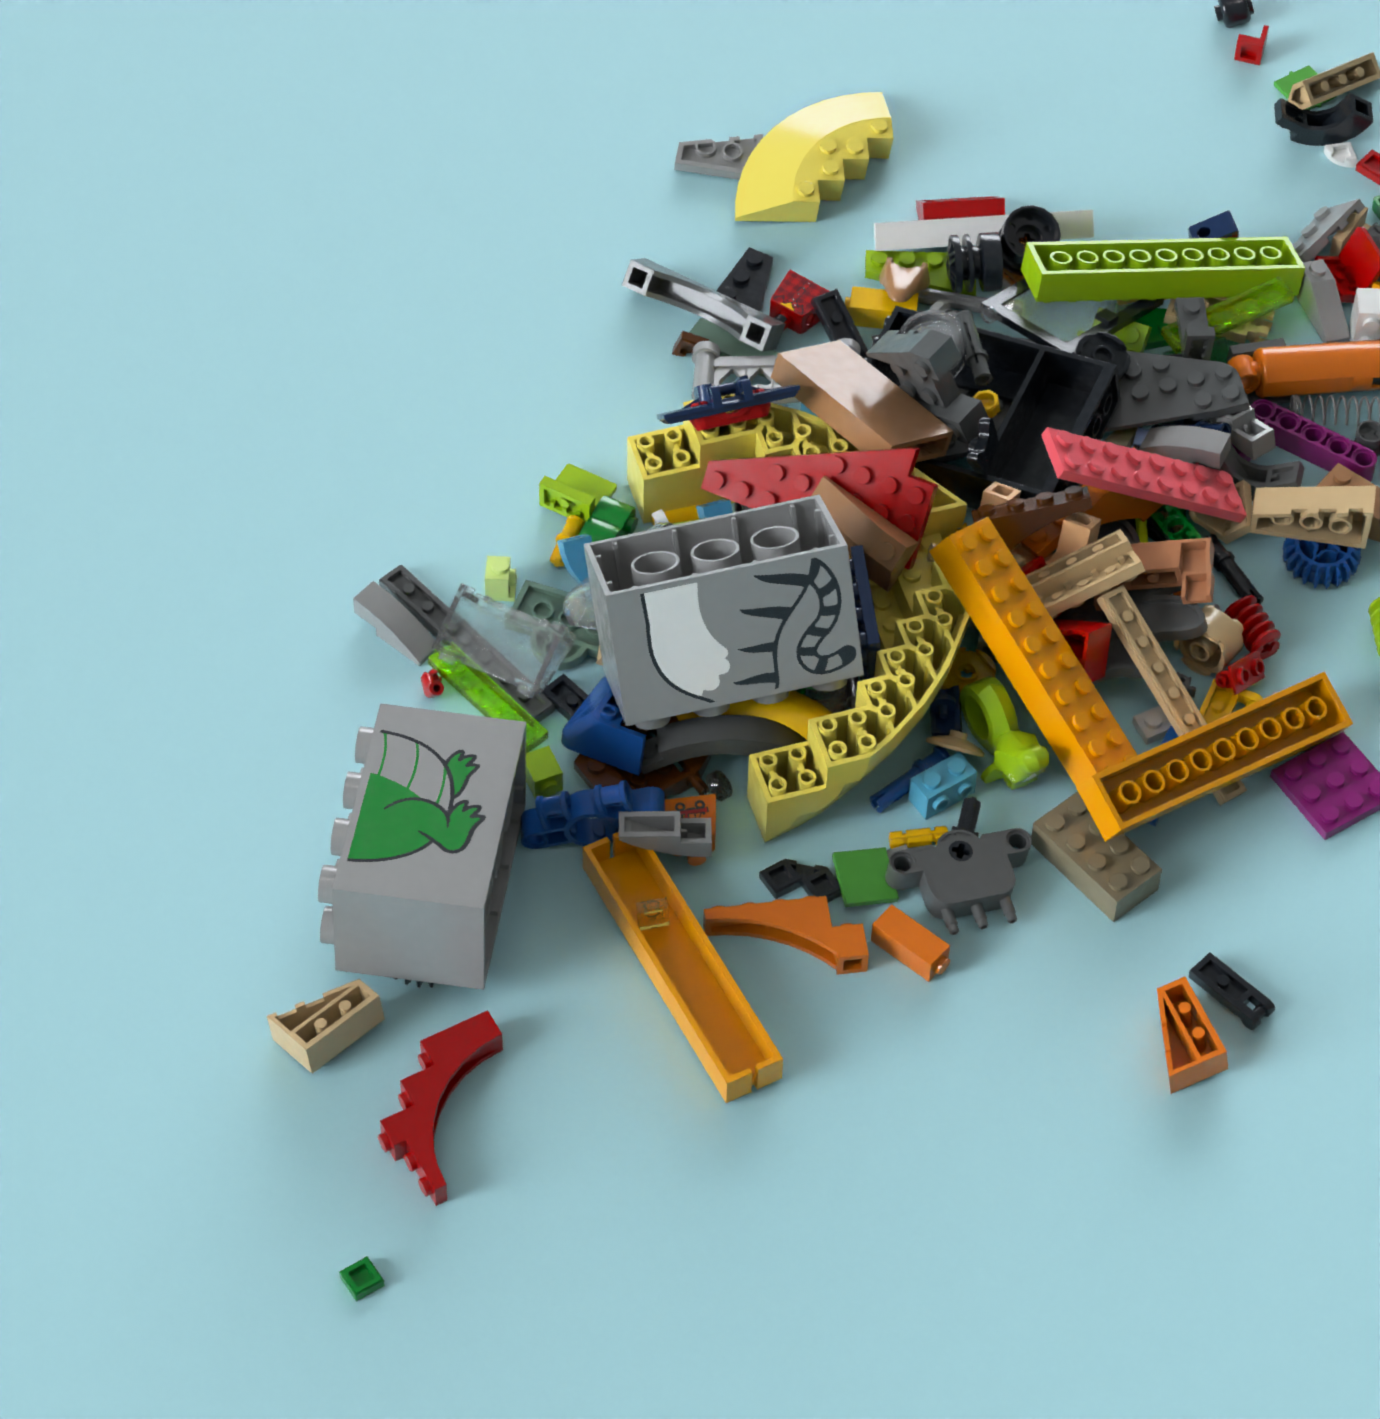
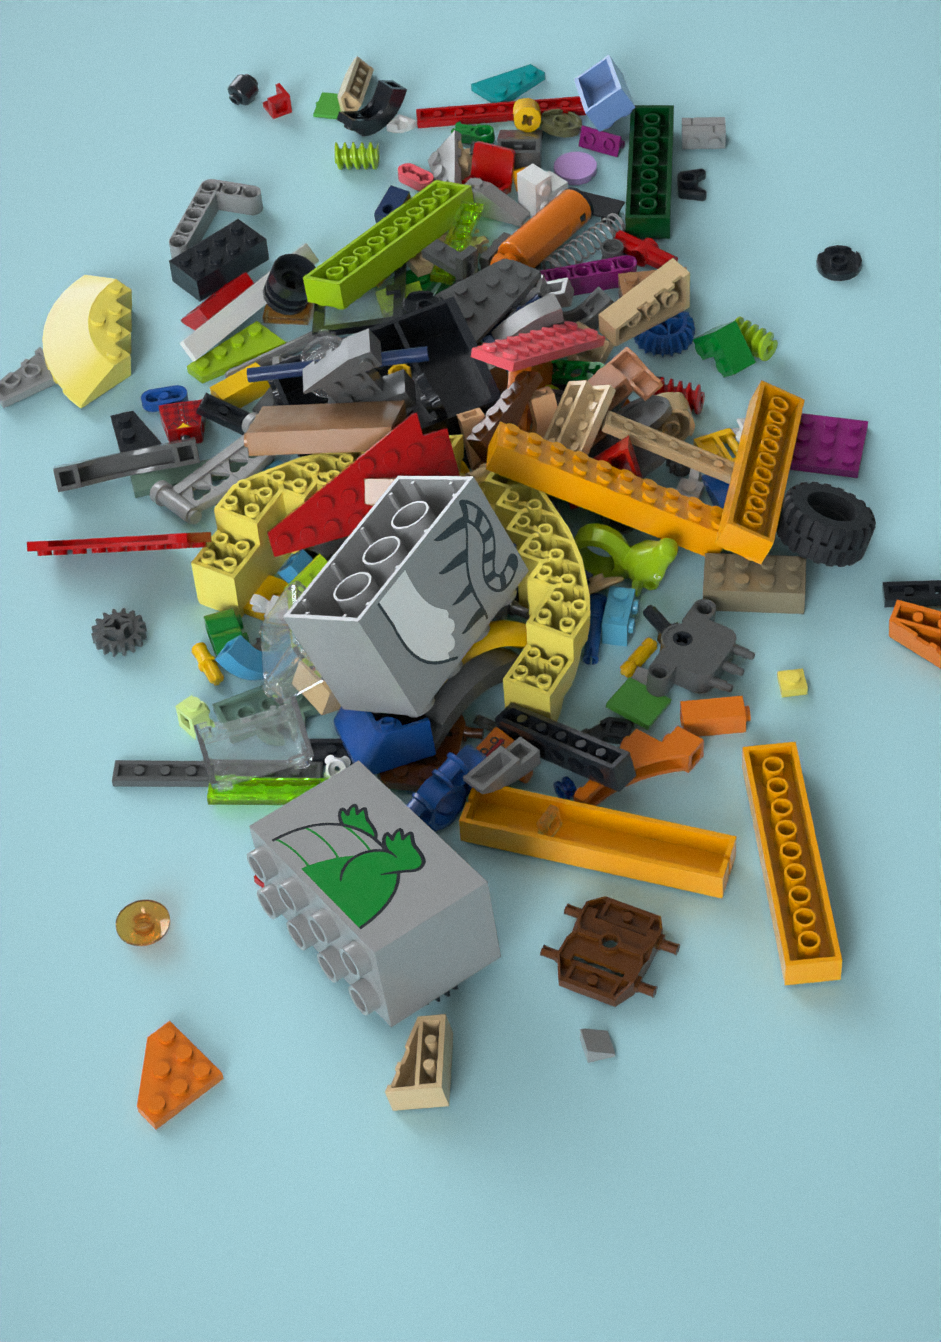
camera: 40 degrees left, 5 degrees down
(149, 863) = (172, 1075): none -> orange plate
(263, 710) = (139, 915): none -> clear orange dish
(361, 1278) = (638, 1199): green tile -> none
(394, 623) = (158, 796): light grey slope -> none
(432, 684) = (228, 815): red arm -> none
(445, 1062) = (541, 1056): red arch -> none
(479, 1128) = (596, 1044): none -> light grey slope
(528, 453) = (119, 632): none -> dark grey gear
(551, 718) = (332, 762): none -> white plate
(574, 492) = (180, 632): lime bracket -> none
(585, 1082) = (637, 939): none -> reddish brown piece
(628, 391) = (121, 544): none -> red wing
(686, 343) = (140, 496): reddish brown tile -> none
(709, 408) = (251, 482): dark blue piece -> none
(713, 896) = (565, 788): none -> clear blue bush
(741, 860) = (569, 747): none -> black brick
(808, 1122) = (791, 864): none -> light orange brick
(813, 267) = (161, 396): none -> blue plate
(903, 282) = (235, 361): medium nougat animal -> none
(959, 371) = (295, 369): none -> dark blue piece
(975, 262) = (273, 318): black wheel -> none
(1010, 167) = (219, 259): none -> black brick
(1020, 973) = (792, 682): none -> light yellow plate
(1034, 113) = (208, 199): none -> light grey beam
(1189, 869) = (825, 524): none -> black tyre
(1242, 673) = (706, 423): red hinge -> none
(1254, 157) = (357, 156): none -> lime piece
(1293, 219) = (414, 176): none -> coral beam
(1348, 616) = (727, 348): none -> green brick

